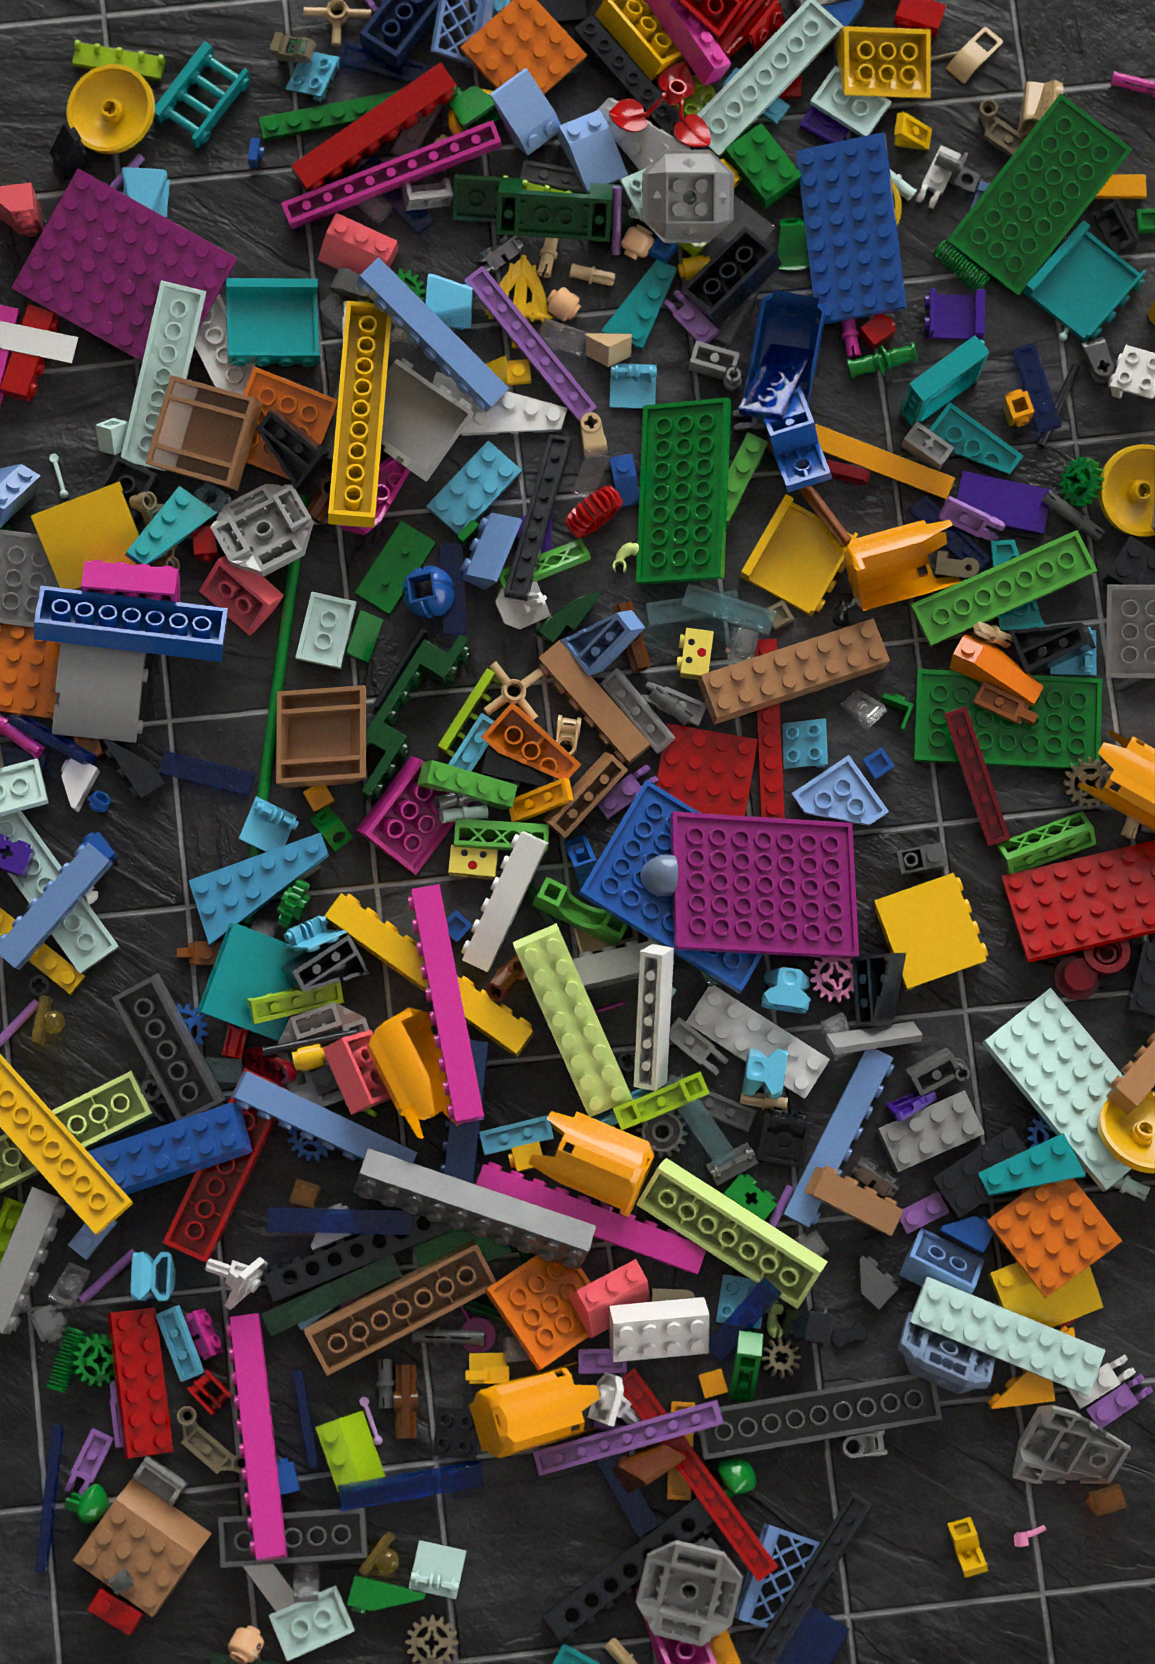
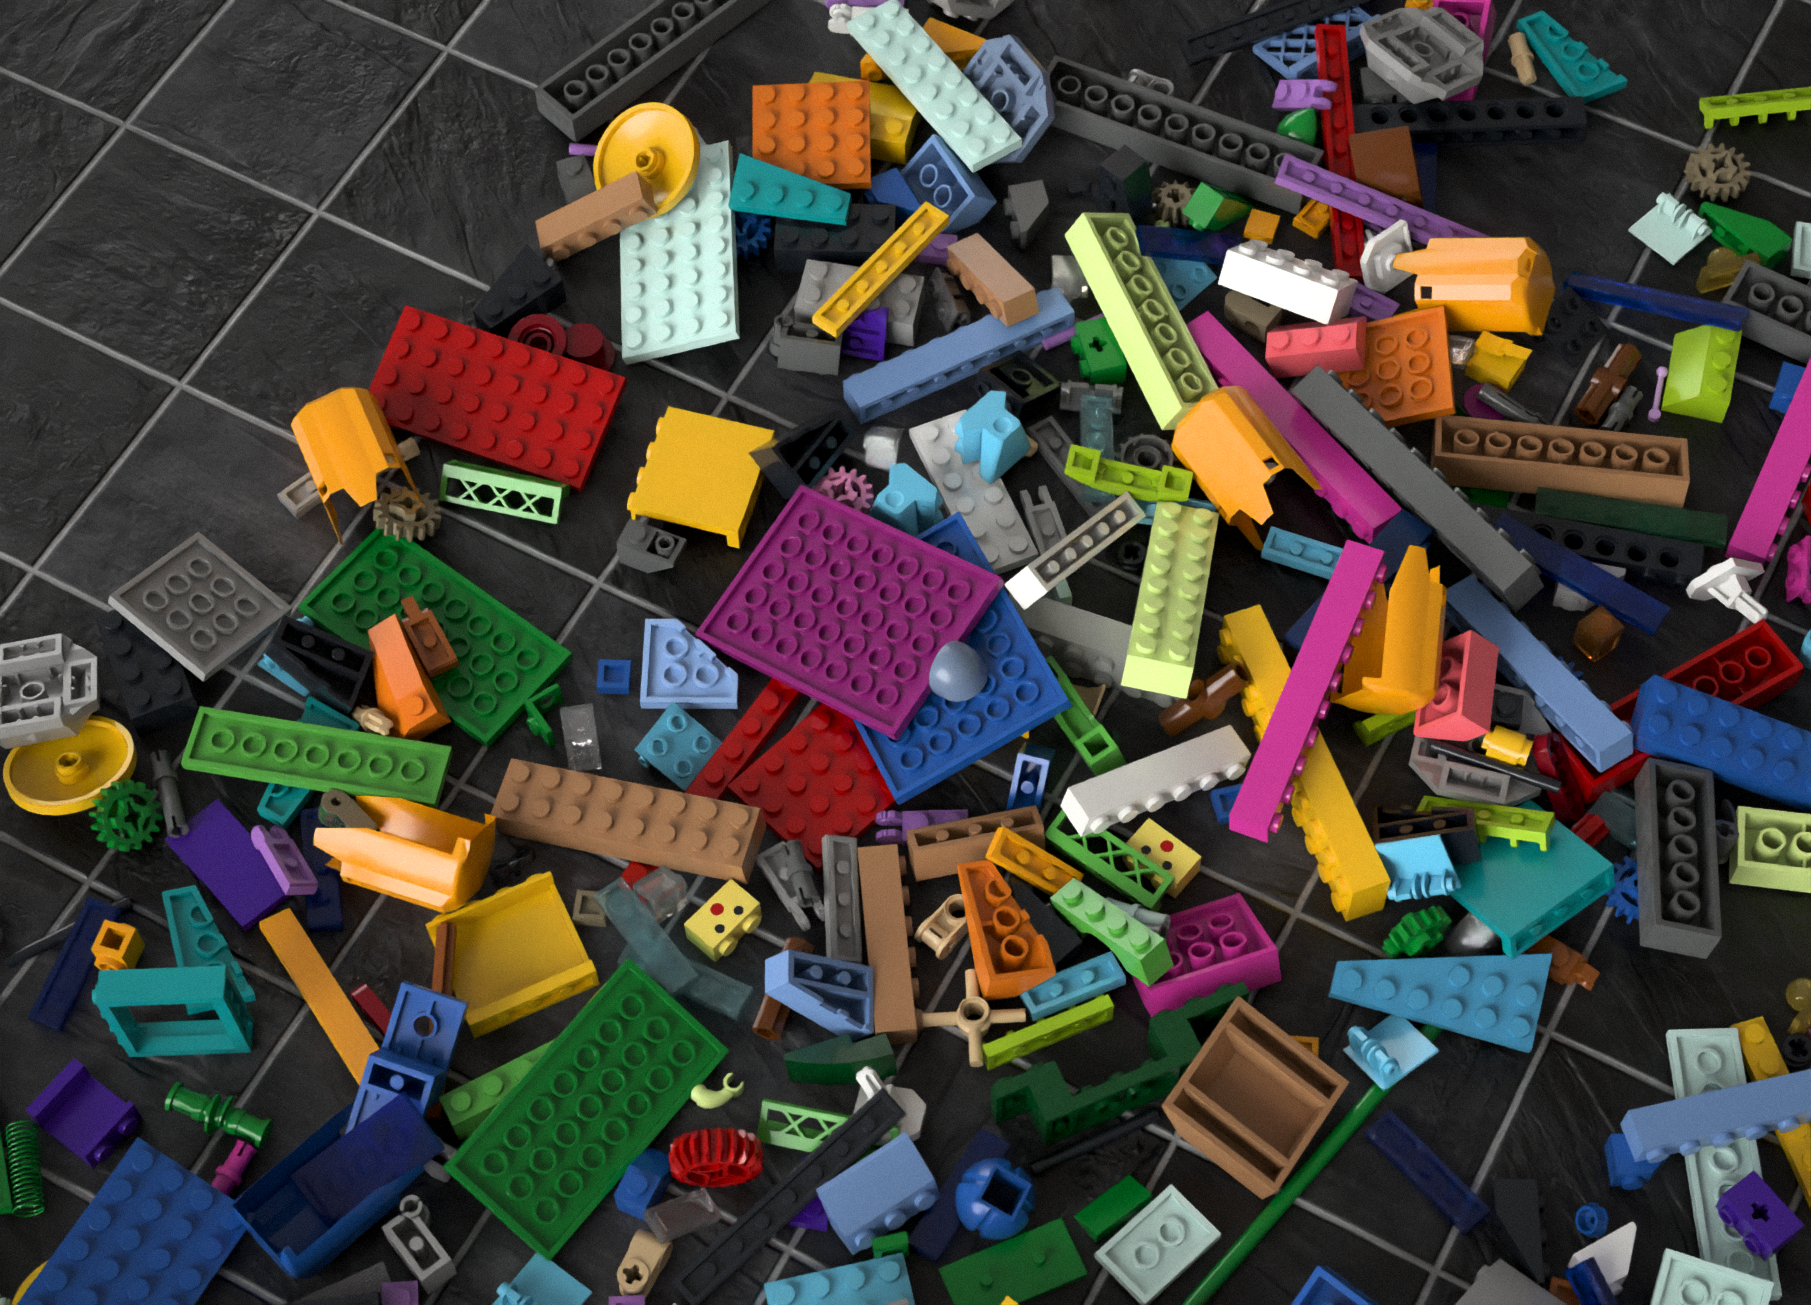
camera: 140 degrees left, 20 degrees down
(306, 1419) = (1732, 428): clear blue tile -> none
(328, 825) = (1310, 1008): green bracket -> none
(521, 1156) = (1316, 523): yellow brick -> none
(750, 1505) = (1300, 94): none -> medium lavender hinge
(874, 1037) = (859, 411): light grey tile -> none
(877, 331) = (195, 1152): red brick -> none
(925, 1149) = (880, 269): none -> yellow plate
(927, 446) = (258, 976): light grey hinge -> none
(976, 776) = (519, 590): dark red plate -> none

